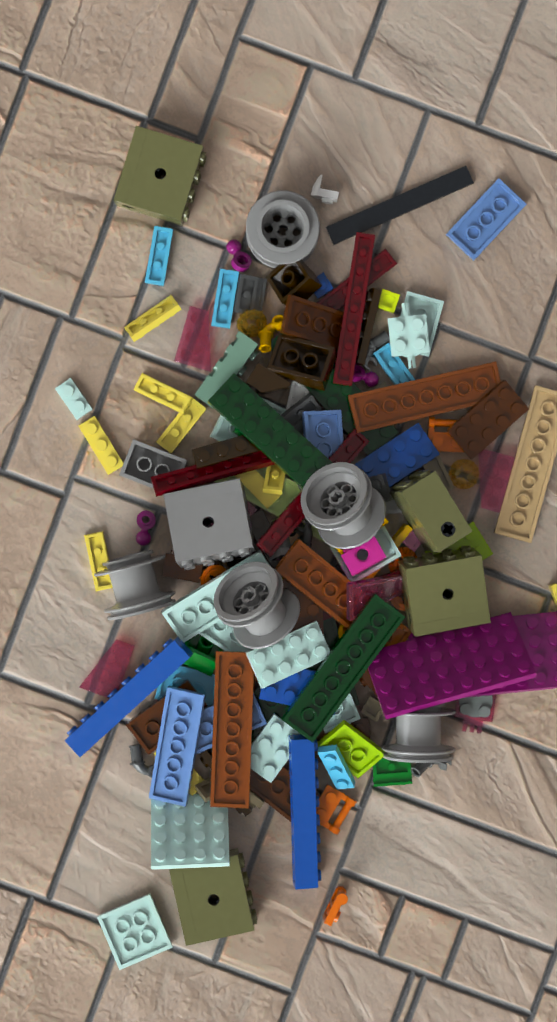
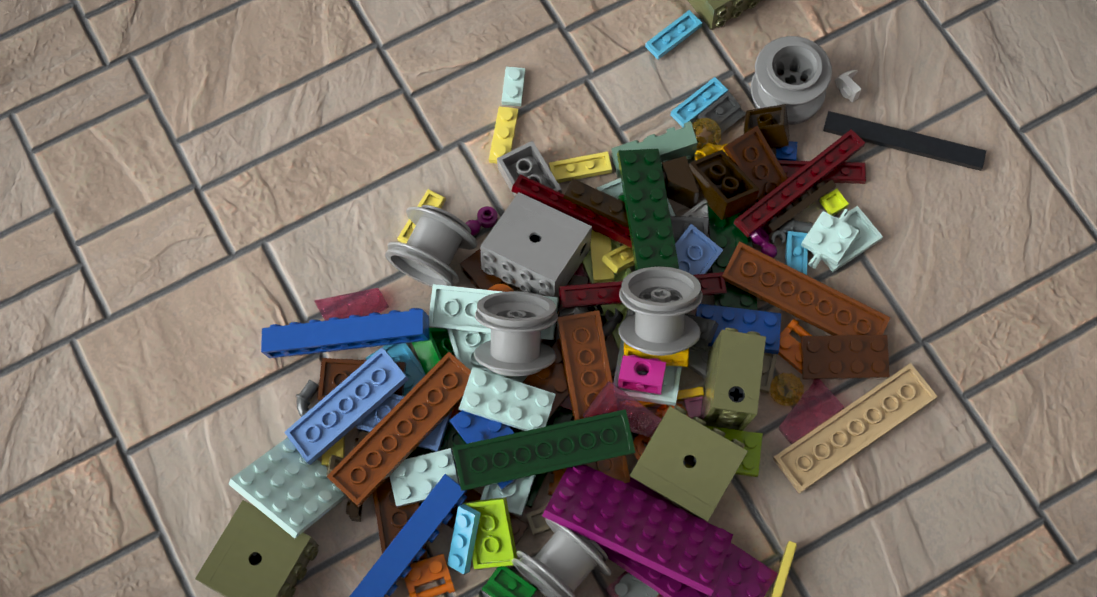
camera: 45 degrees right, 20 degrees down
(134, 931) = (167, 539): light aqua plate -> none
(152, 318) = (628, 74): light yellow plate -> none
(163, 393) = (587, 133): light yellow tile -> none
(195, 340) = (648, 114): clear pink wing -> none
(234, 247) = (736, 83): magenta plate -> none
(255, 800) = (368, 511): dark tan plate -> none
(486, 219) = (971, 202): medium blue plate -> none

